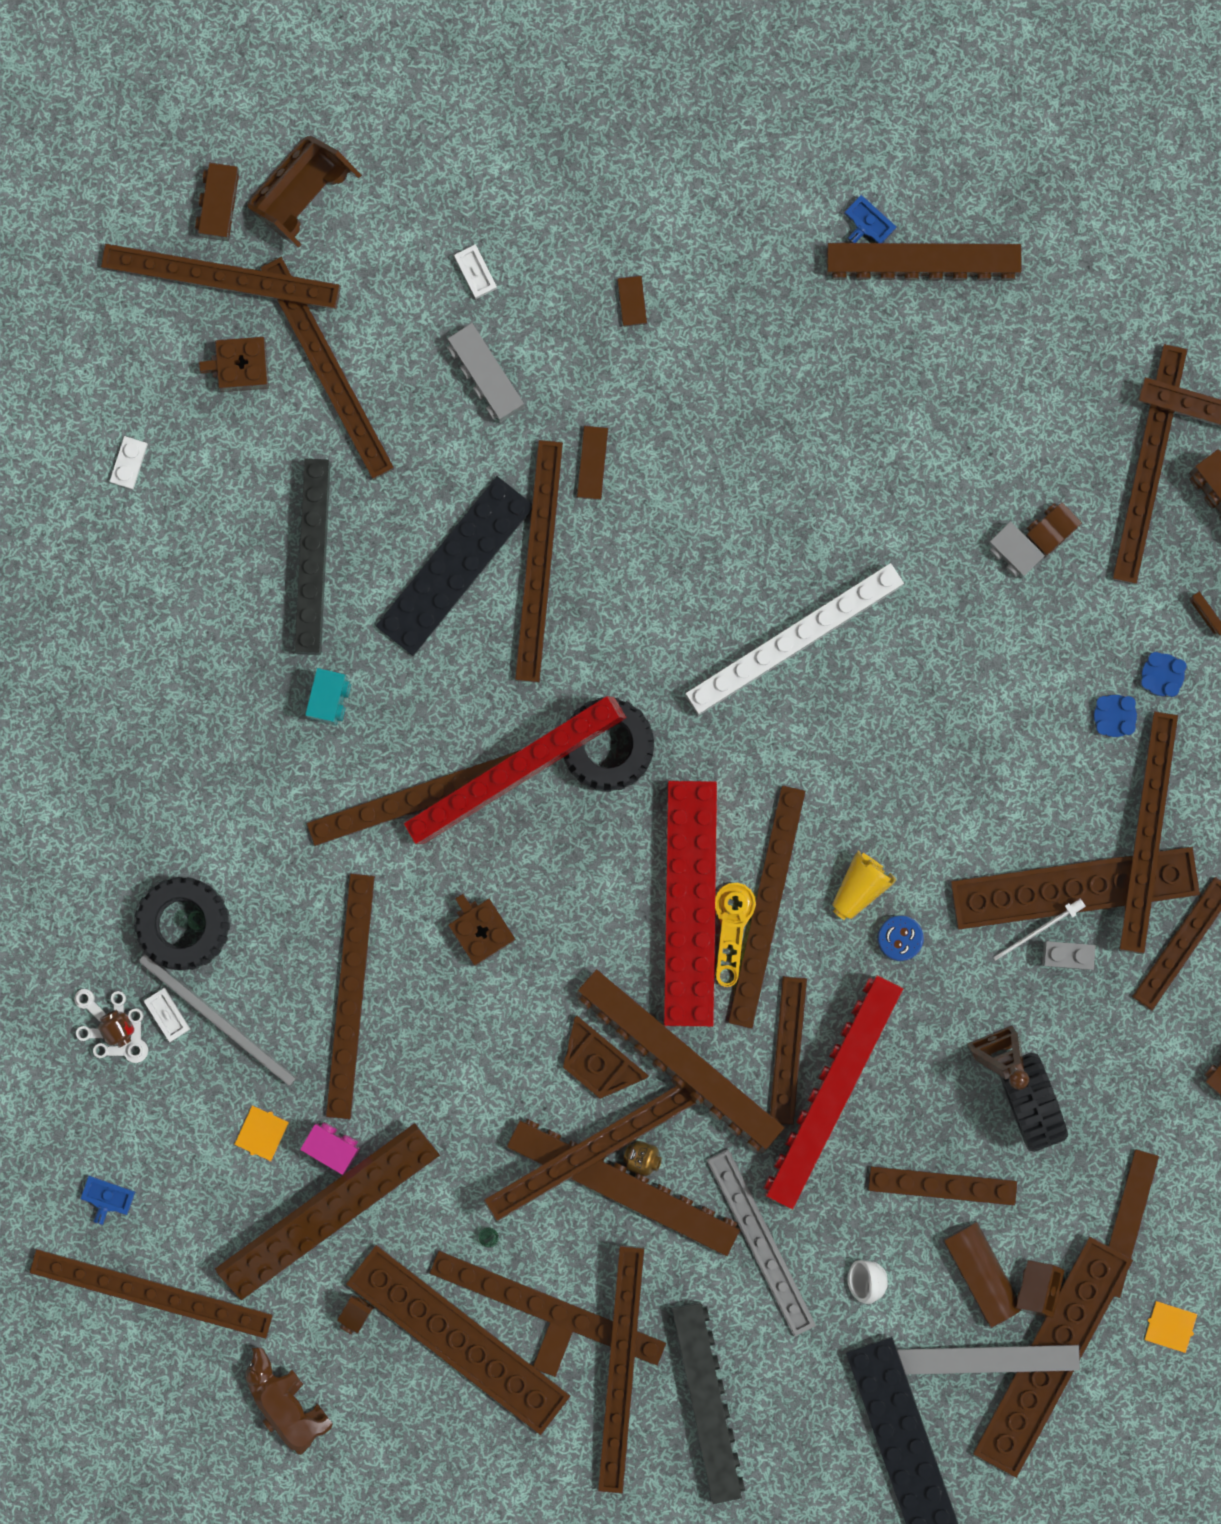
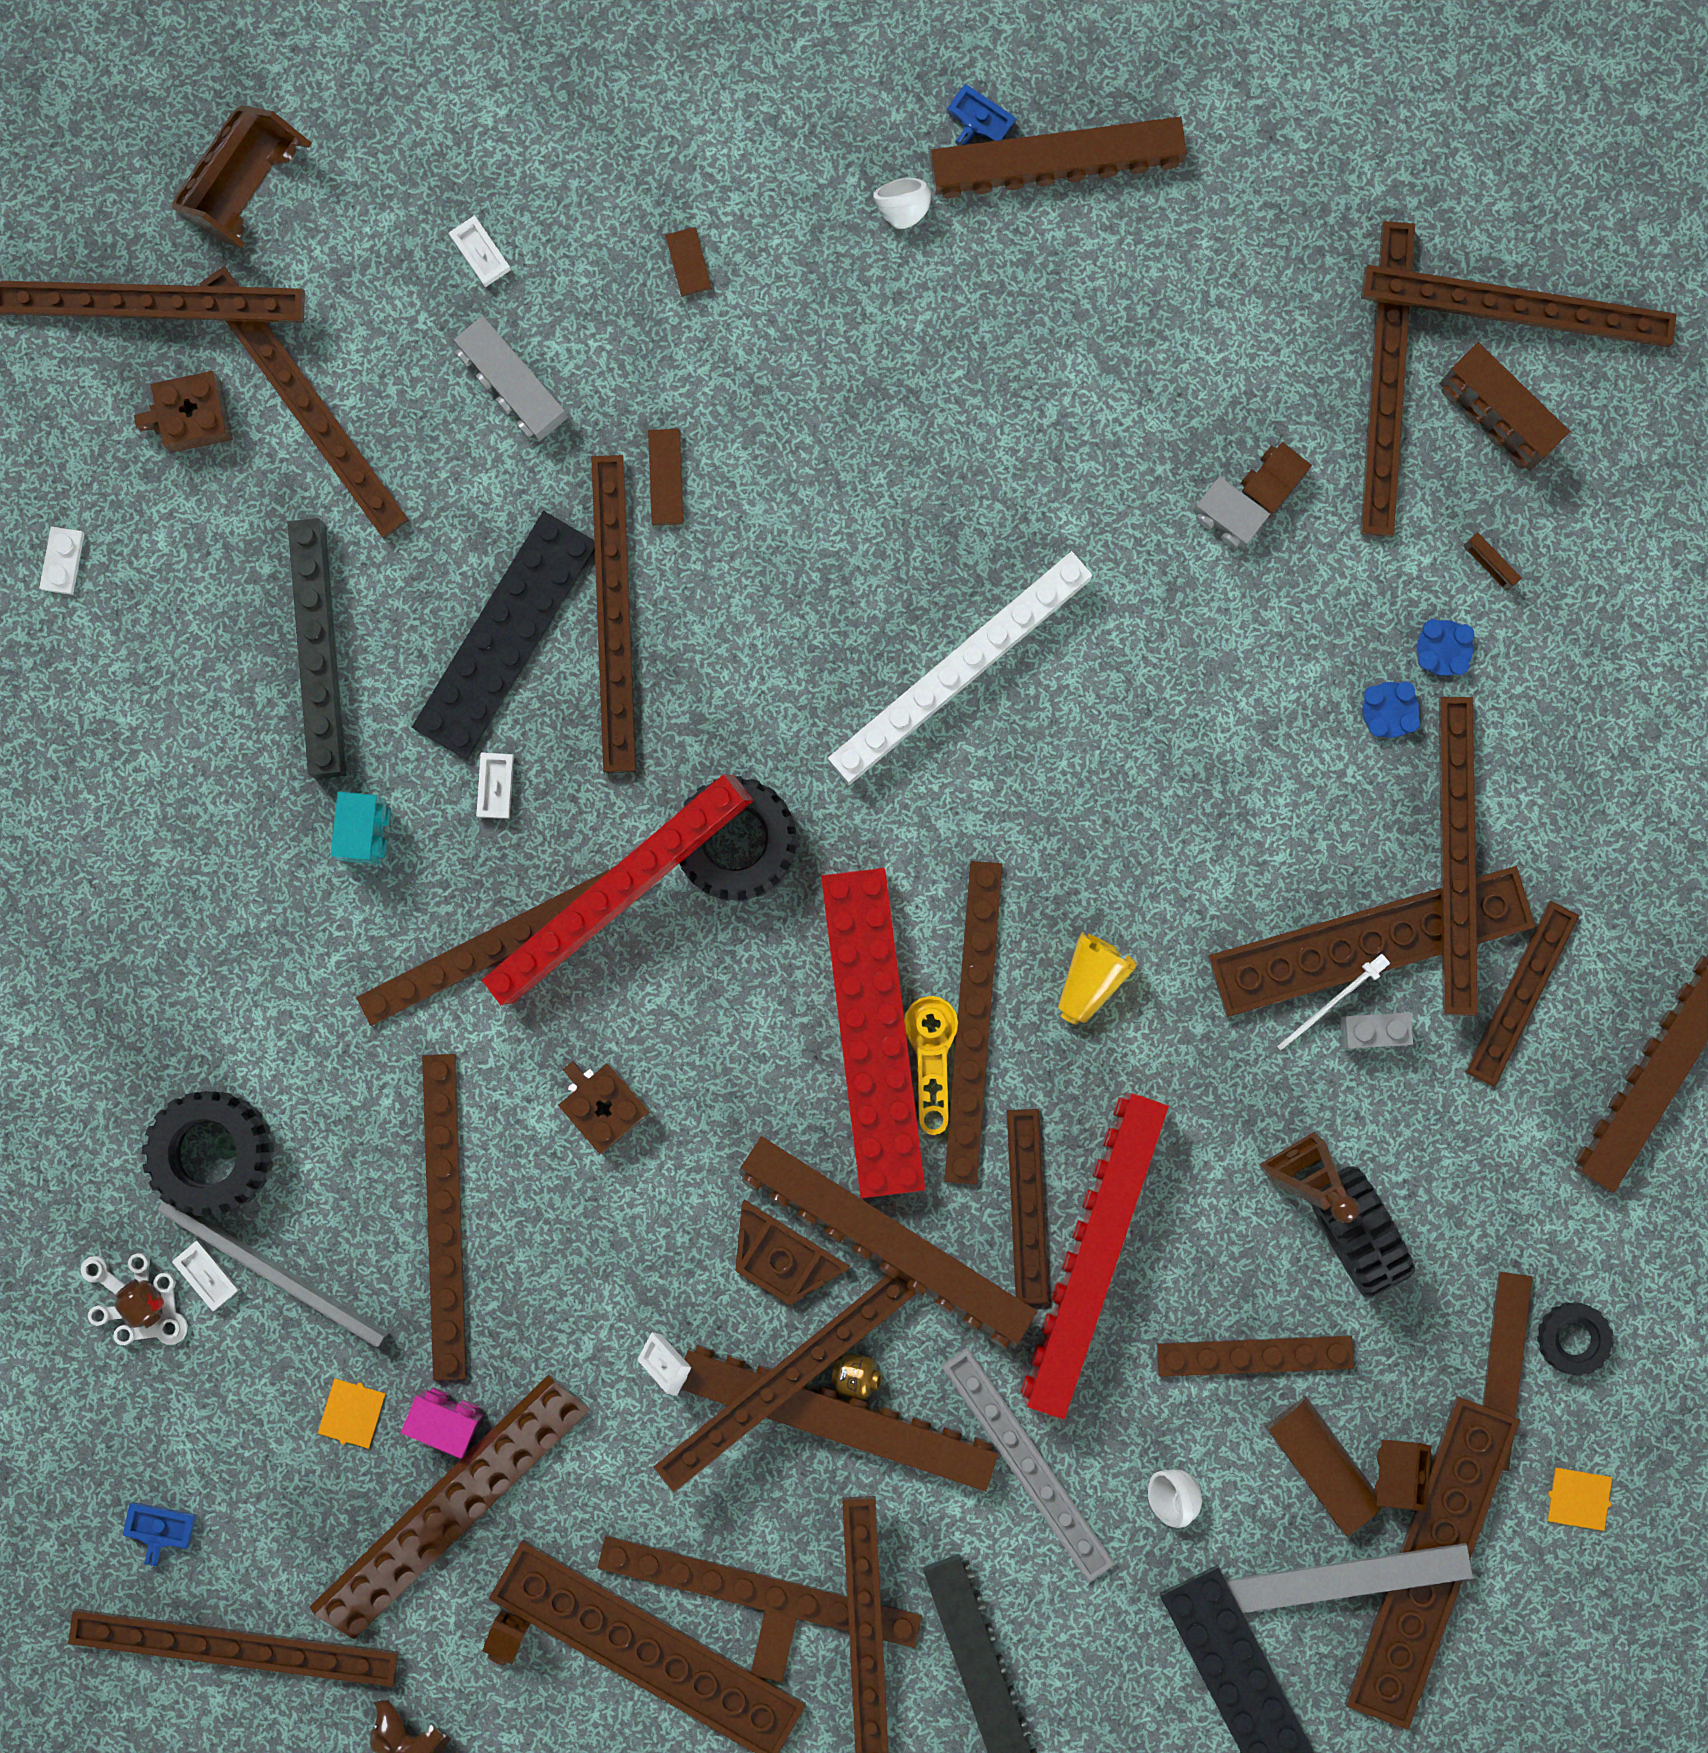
camera: 10 degrees left, 0 degrees up
(217, 201) = (132, 206): reddish brown brick -> none
(432, 679) = (495, 785): none -> white plate
(485, 1234) = (665, 1504): clear green hinge -> none
(500, 1128) = (664, 1363): none -> white plate
(801, 278) = (903, 201): none -> white hat
(900, 938) = (1153, 1038): blue head -> none
(1202, 1212) = (1599, 1331): none -> black tyre

